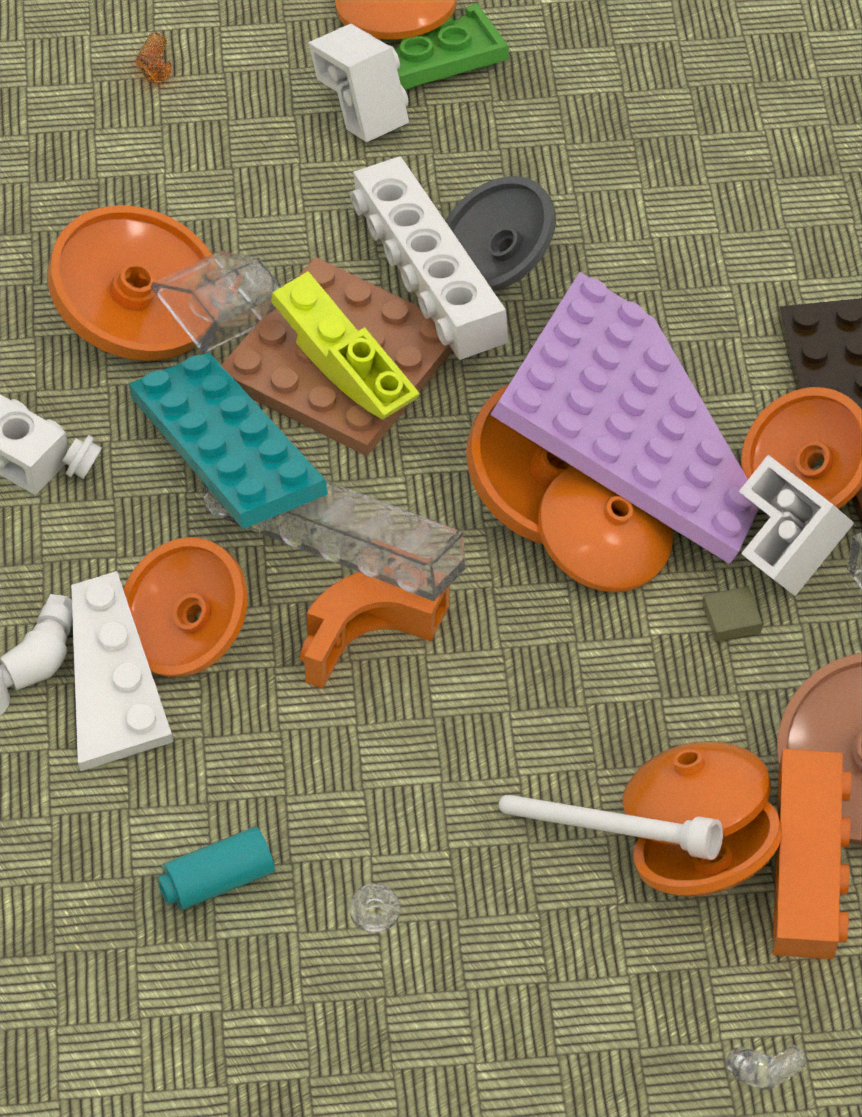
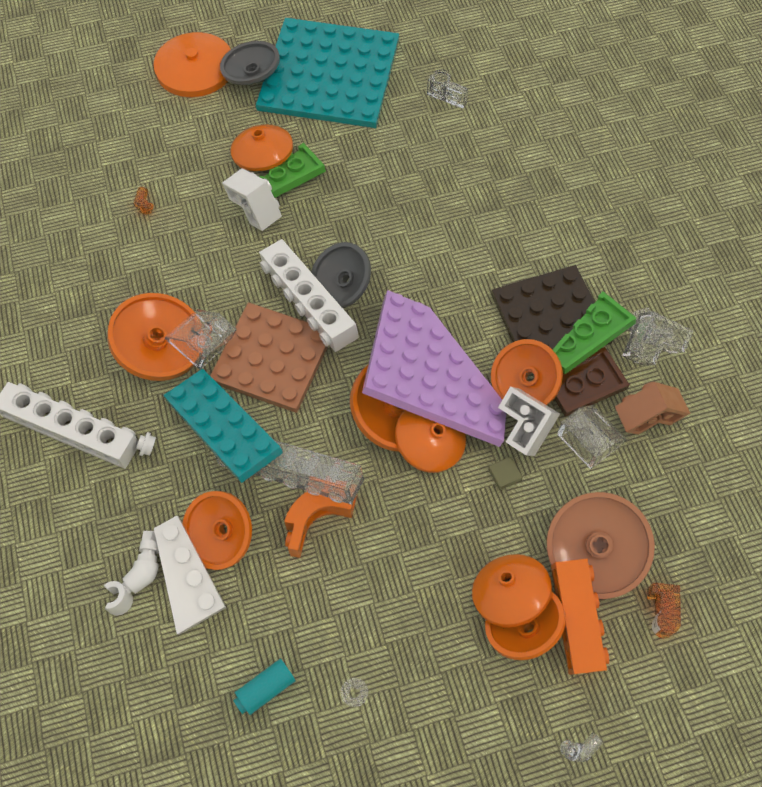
camera: 10 degrees left, 10 degrees up
(342, 352) = (273, 359): neon yellow slope -> none
(699, 836) = (521, 625): white piece -> none

